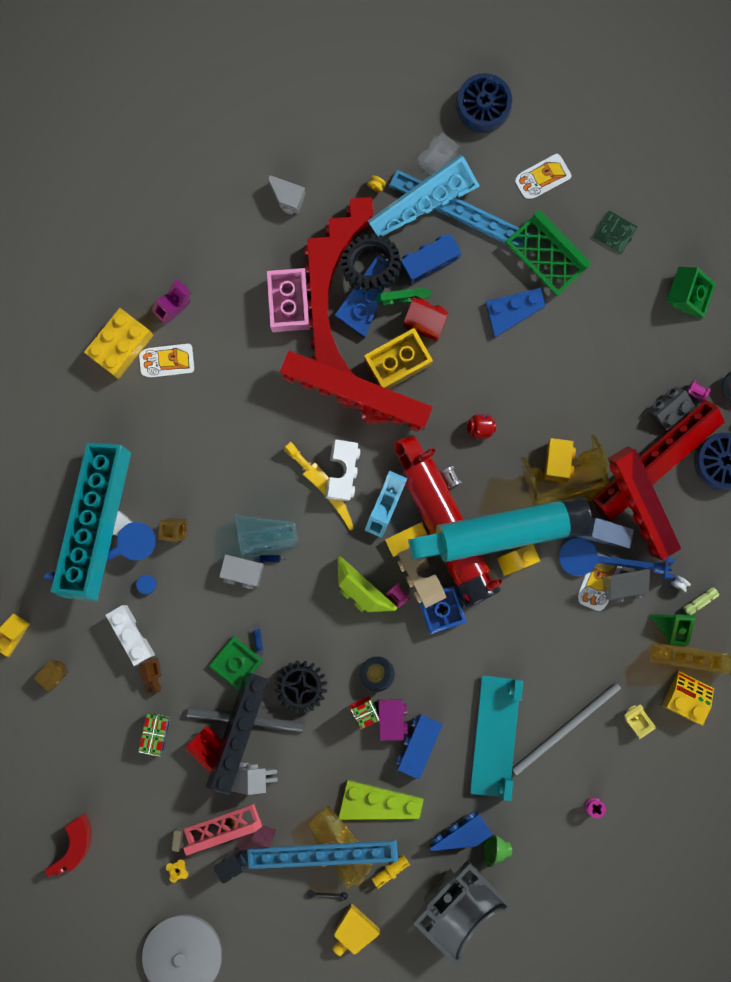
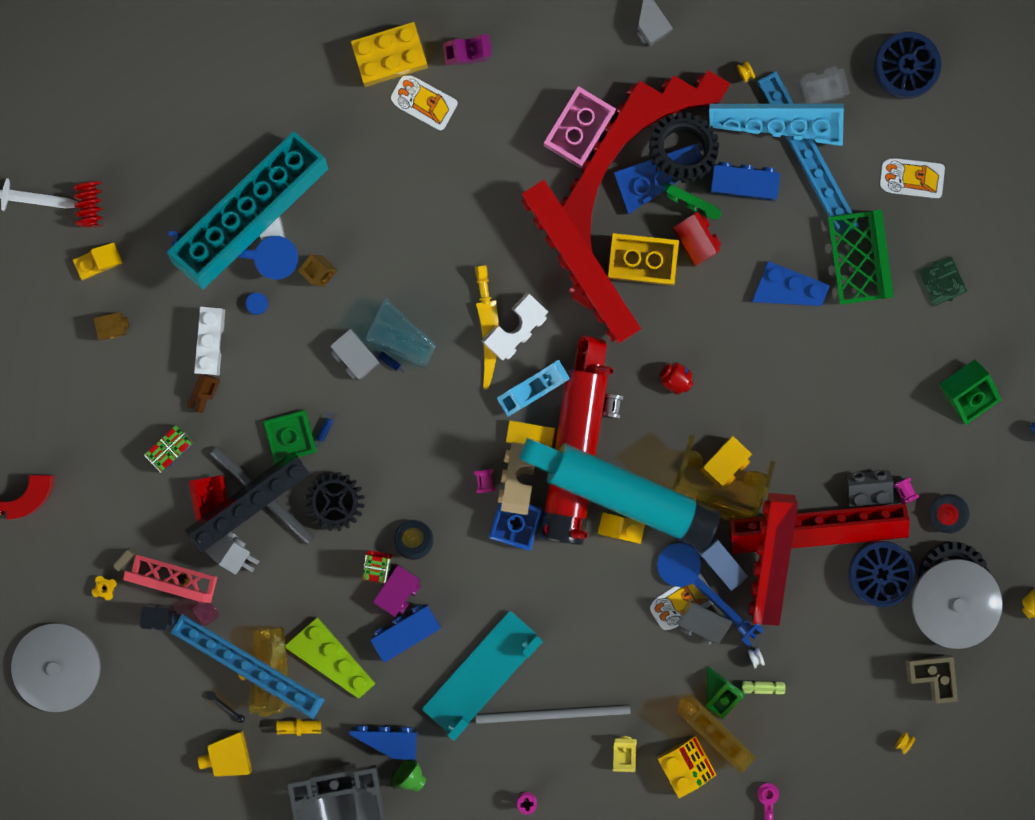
camera: 30 degrees right, 5 degrees up
(361, 590) = (453, 451): lime wedge -> none

